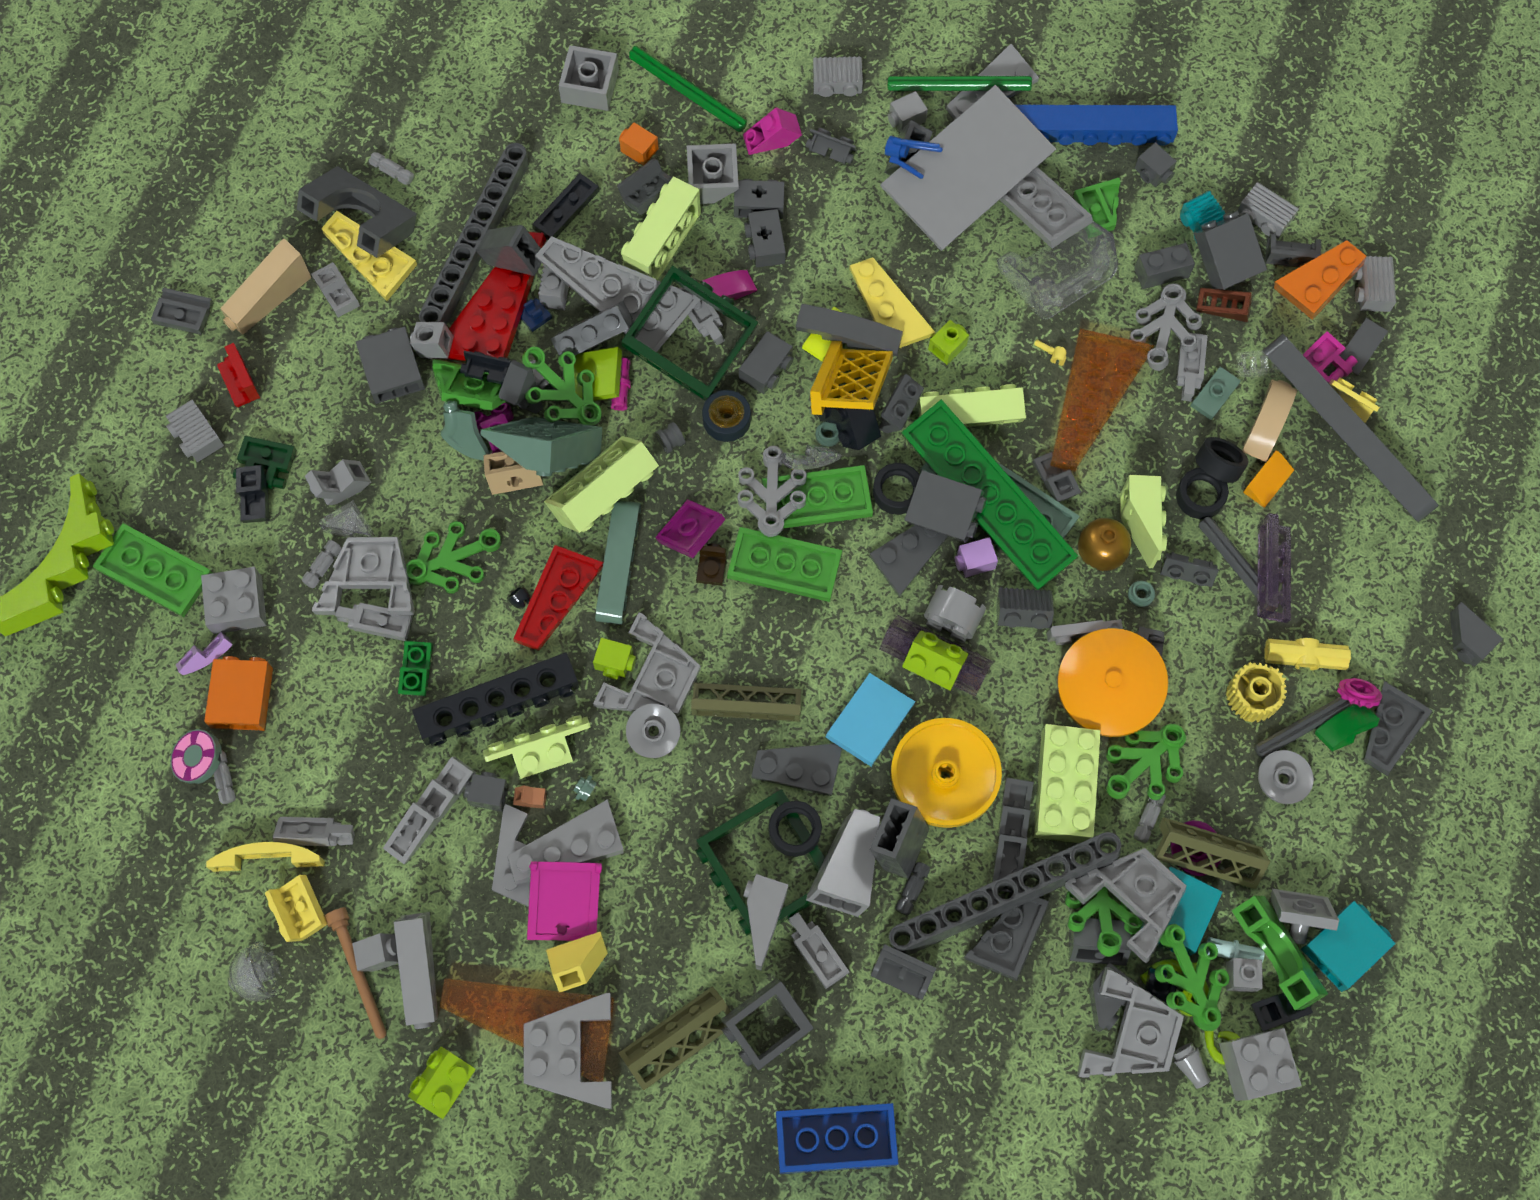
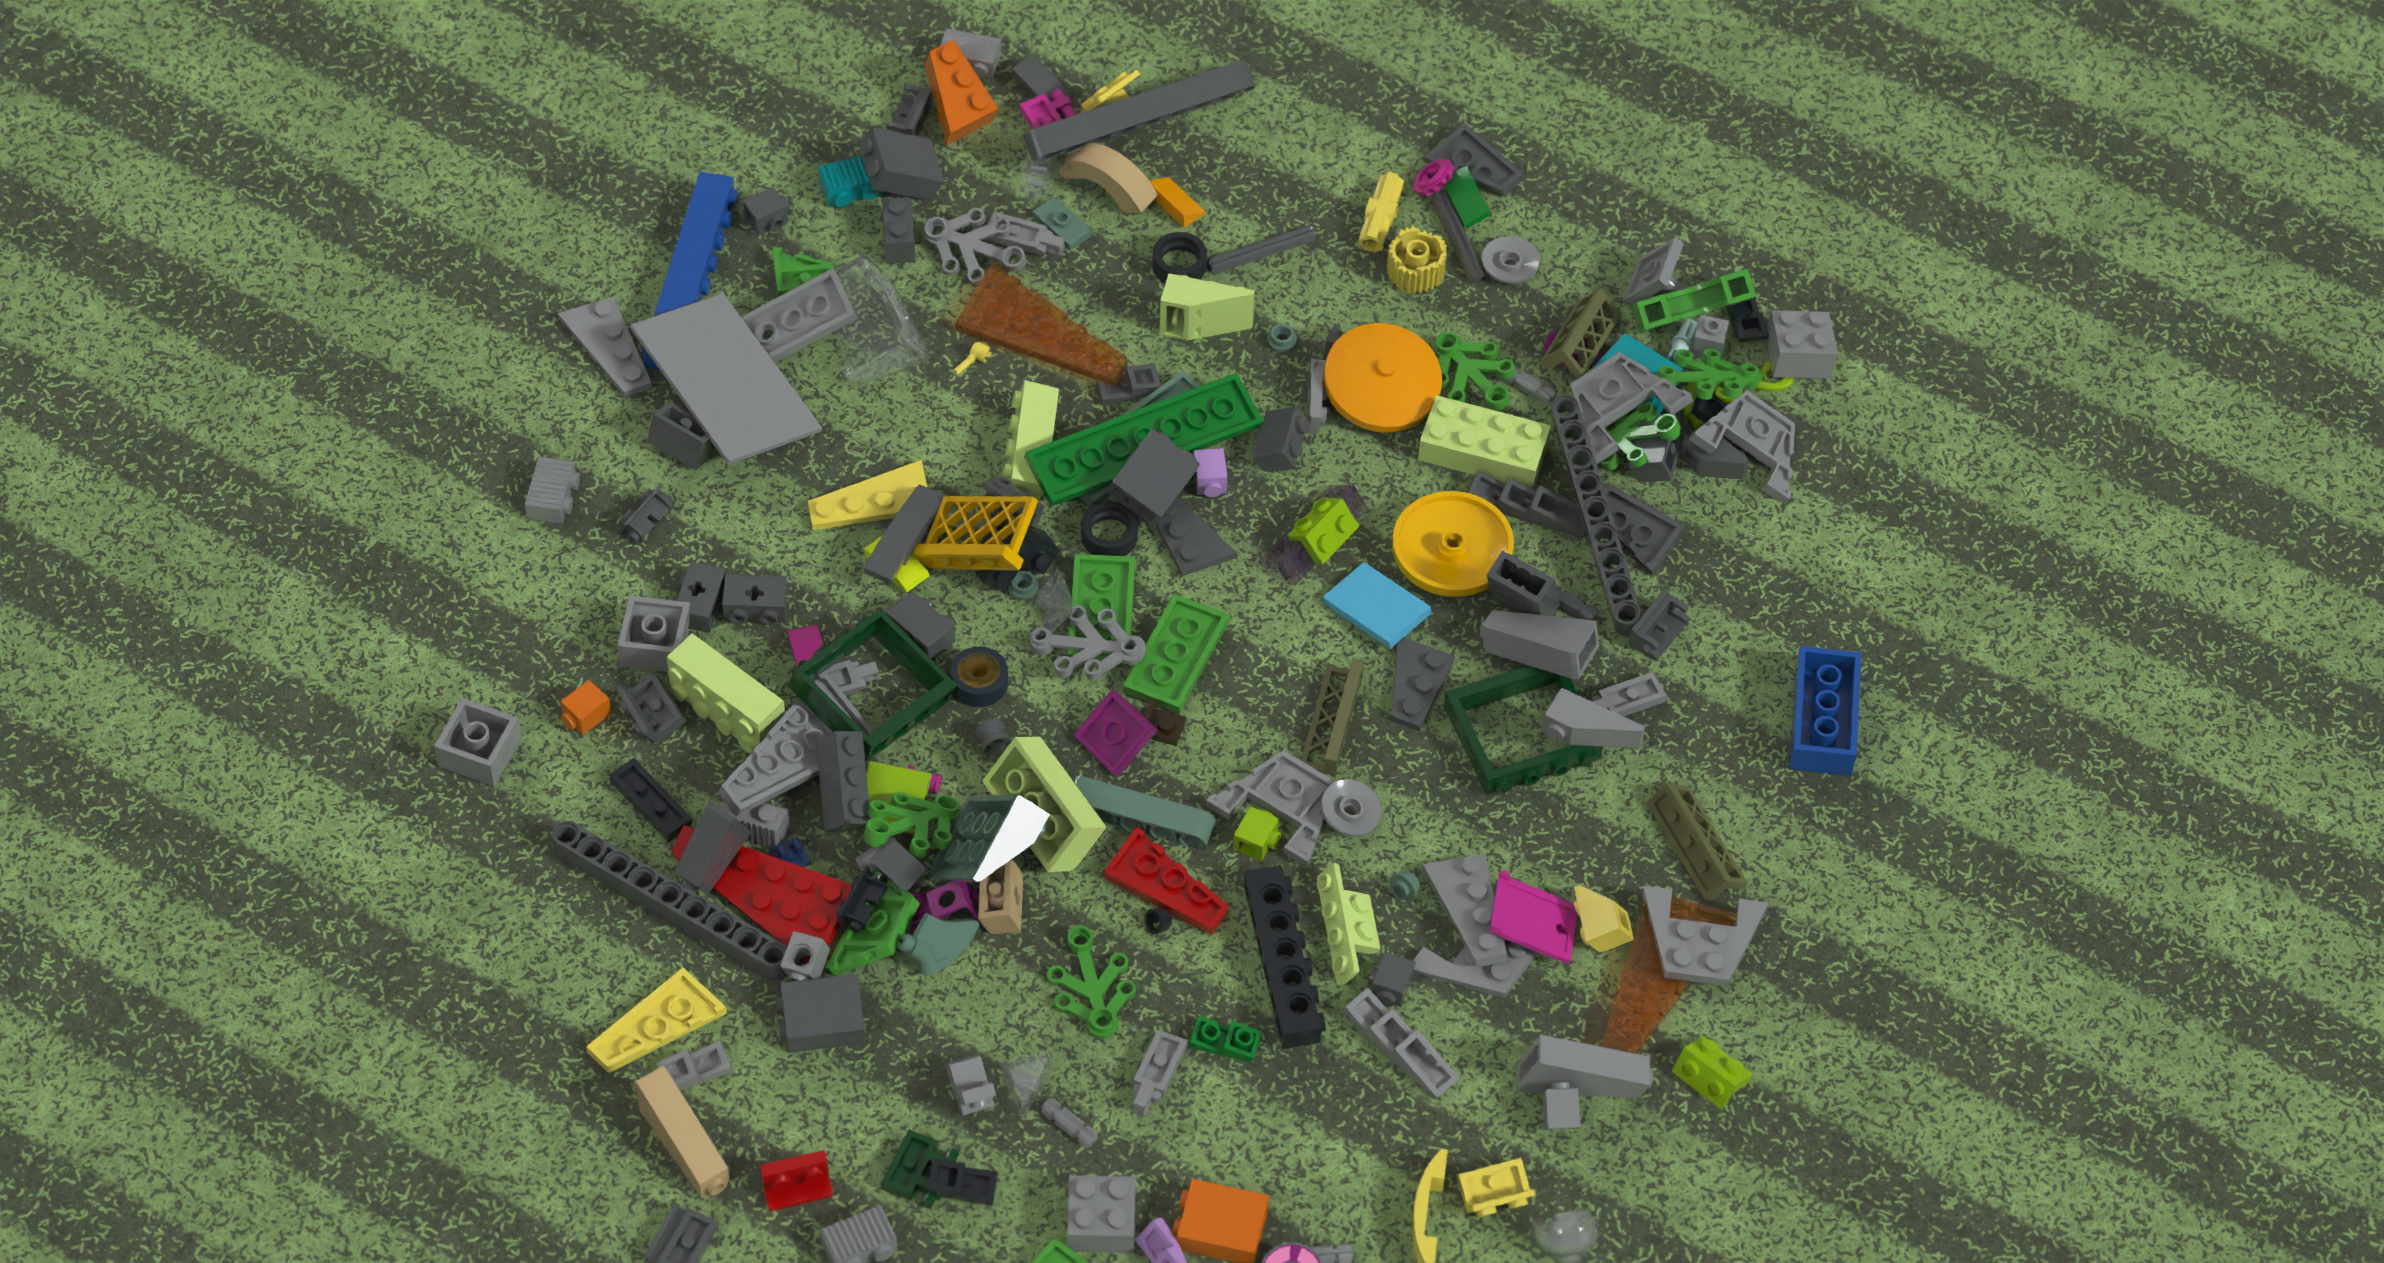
camera: 80 degrees left, 15 degrees down
(312, 832) = (1405, 1165): light grey hinge -> none
(338, 922) = (1519, 1149): medium nougat piece -> none
(339, 189) = (620, 984): dark grey arch -> none
(368, 565) = (1086, 1066): light grey wing -> none
(391, 168) = (536, 983): light grey axle -> none
(530, 797) = (1405, 940): nougat piece -> none
(687, 89) = (516, 649): green axle -> none
(772, 132) = (611, 570): dark pink slope -> none
(776, 989) = (1676, 729): dark grey window -> none
(795, 807) = (1496, 699): black tyre -> none
(899, 148) = (693, 428): blue plant -> none
(907, 109) = (624, 429): light grey brick -> none
(948, 342) = (939, 447): lime brick -> none
(954, 612) = (1275, 500): light grey brick -> none
(959, 83) = (602, 370): green axle -> none
(1104, 544) = (1217, 355): pearl gold cylinder -> none
(1191, 1064) = (1792, 403): light grey cone -> none
(1199, 572) = (1268, 283): dark grey hinge -> none
(1221, 459) = (1149, 229): black tyre -> none
(1225, 295) = (962, 171): copper slope -> none
(1268, 210) = (851, 124): light grey brick -> none
(1269, 572) = (1282, 217): clear purple fence -> none
(1351, 949) = (1704, 251): teal brick -> none
(1471, 635) = (1390, 73): dark grey slope -> none

